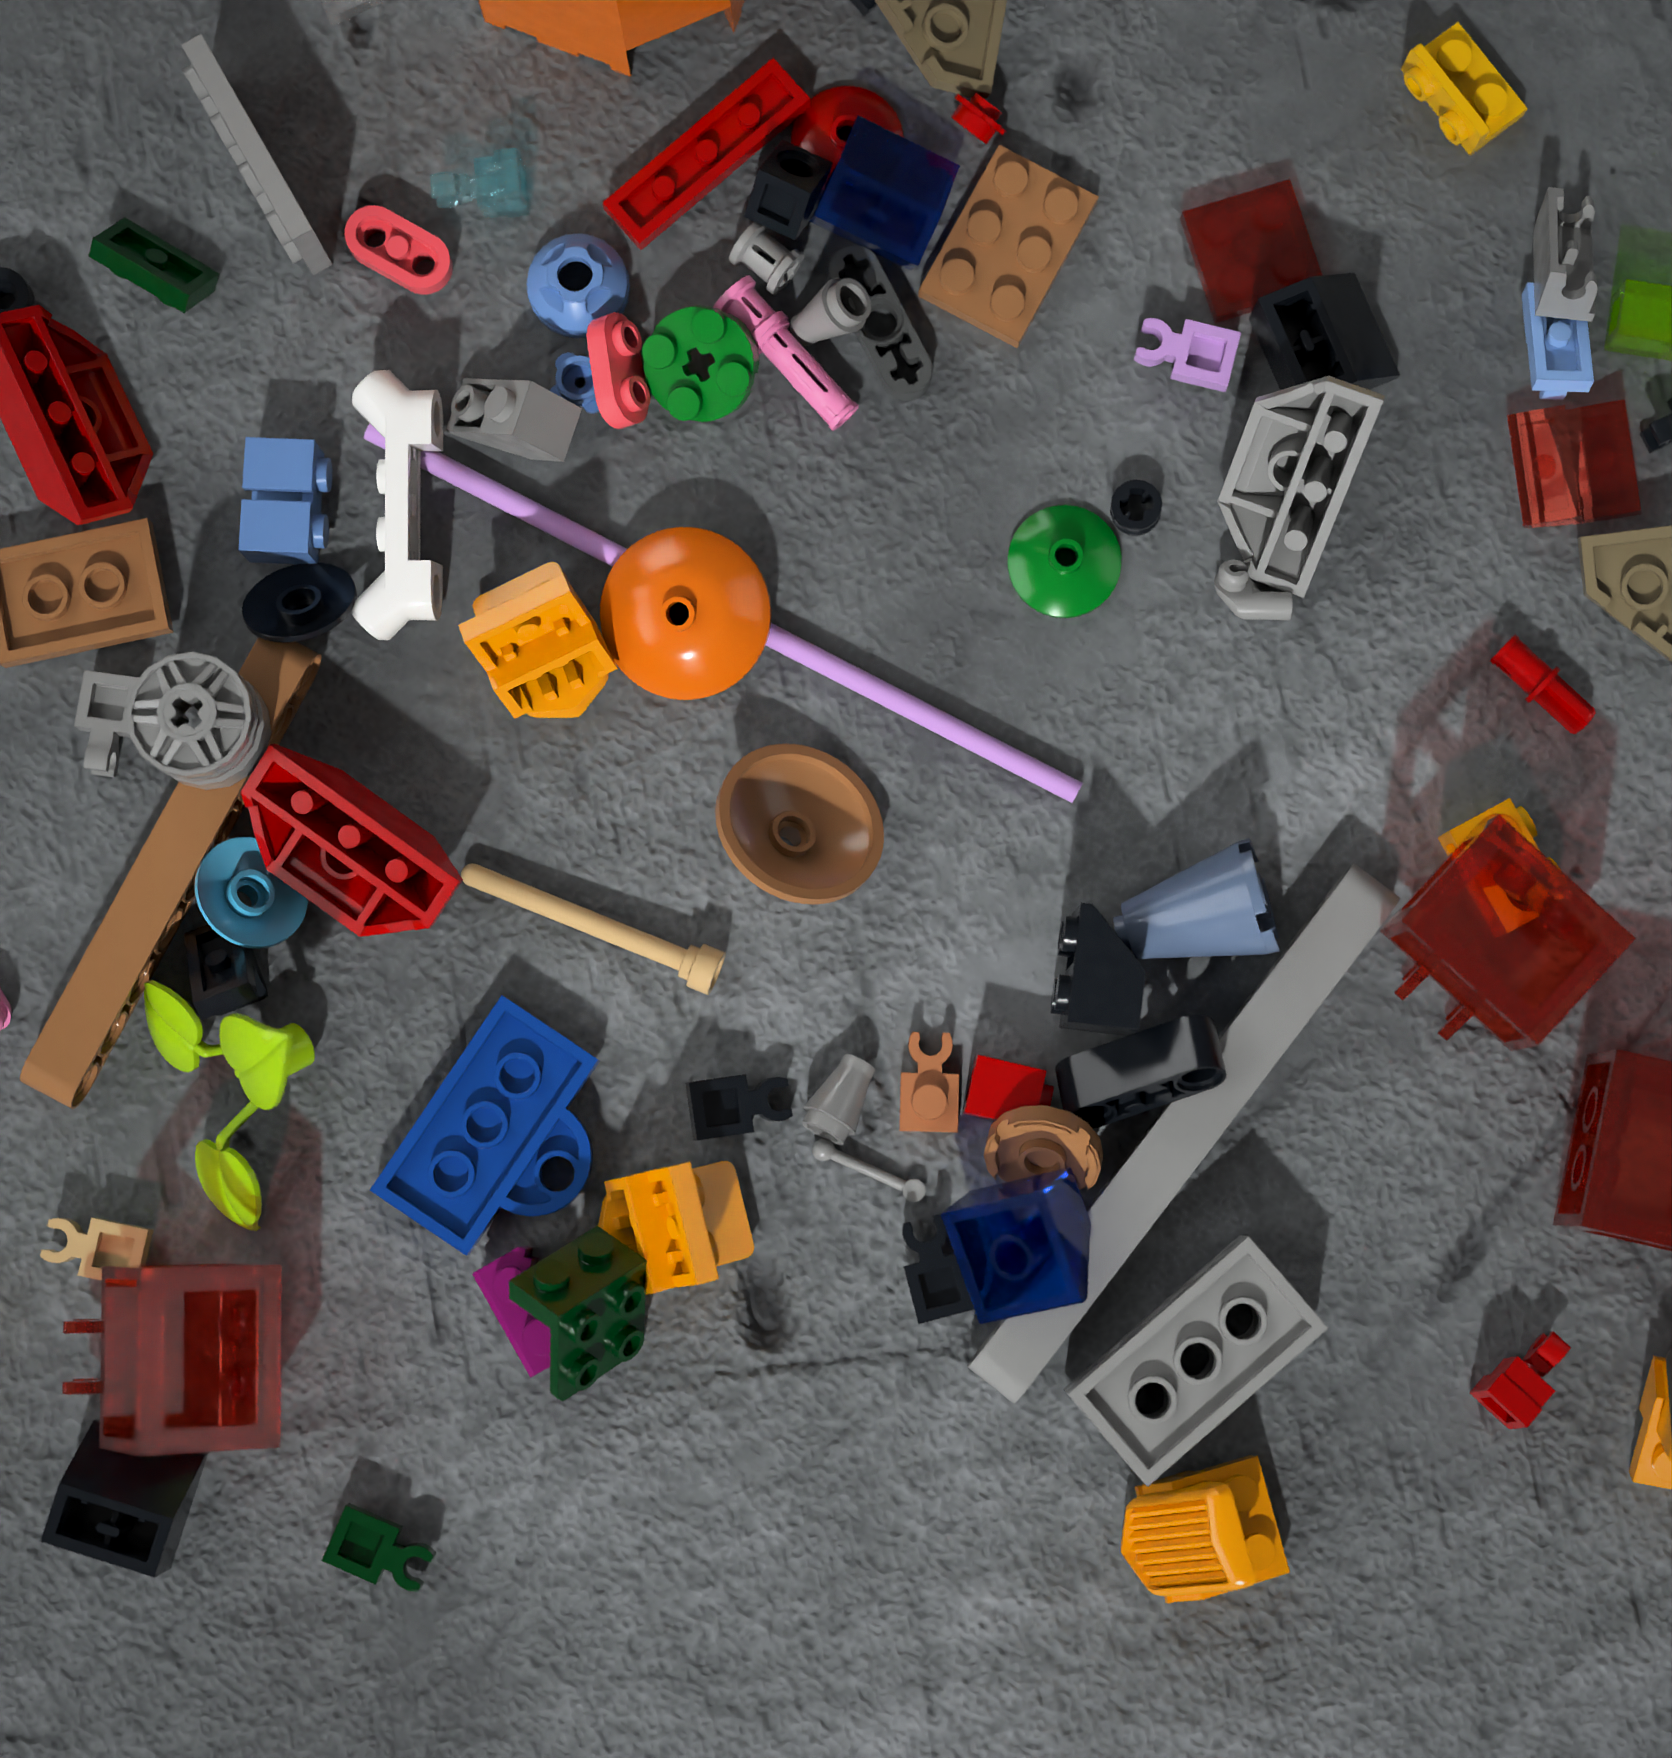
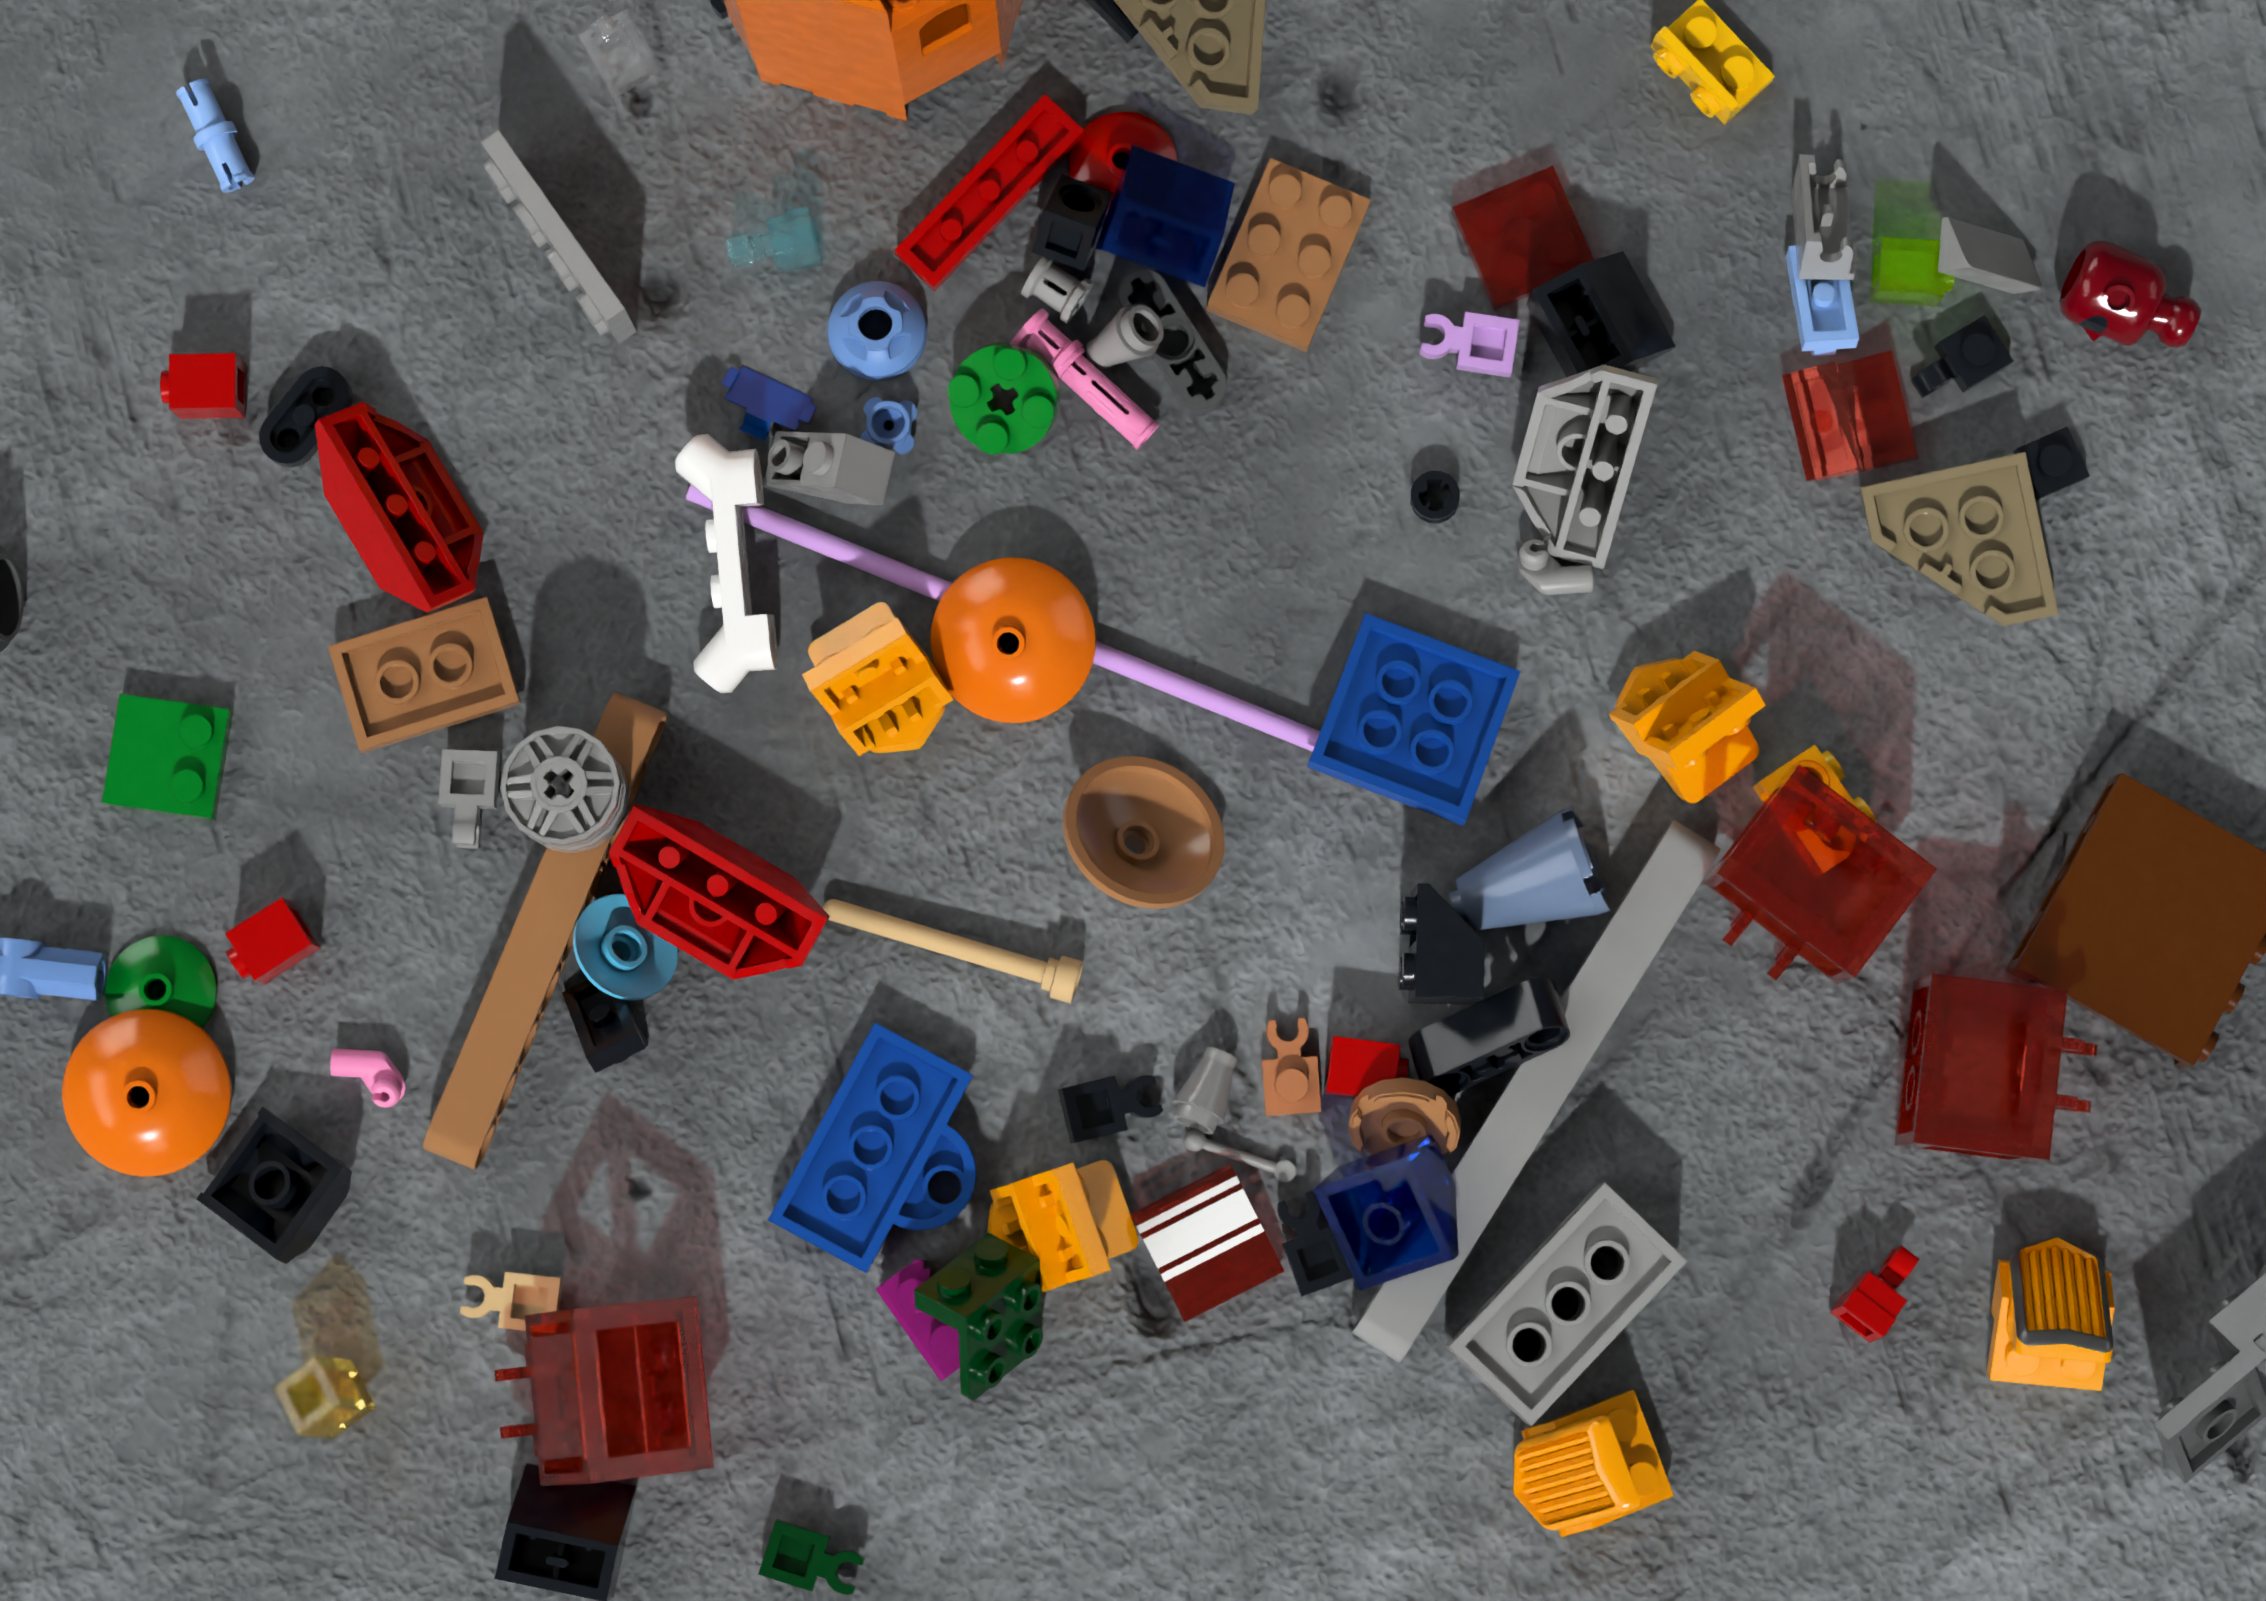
camera: 10 degrees left, 0 degrees up
(153, 265) = (466, 350): dark green plate -> none
(262, 1063) = (661, 1105): lime plant -> none
(284, 514) = (616, 567): medium blue piece -> none
(299, 602) = (642, 664): black dish -> none
(401, 251) = (703, 313): coral plate -> none
(456, 347) = (766, 402): none -> blue piece
(617, 370) = (925, 411): coral plate -> none
(825, 1257) = (1207, 1242): none -> slope
(978, 117) = (1247, 133): red plate -> none
(1057, 588) = (1366, 582): green dish -> none
(1092, 733) = (1414, 719): none -> blue plate
(1380, 763) = (1689, 721): none -> light orange piece
(1543, 685) = (1839, 632): red axle -> none

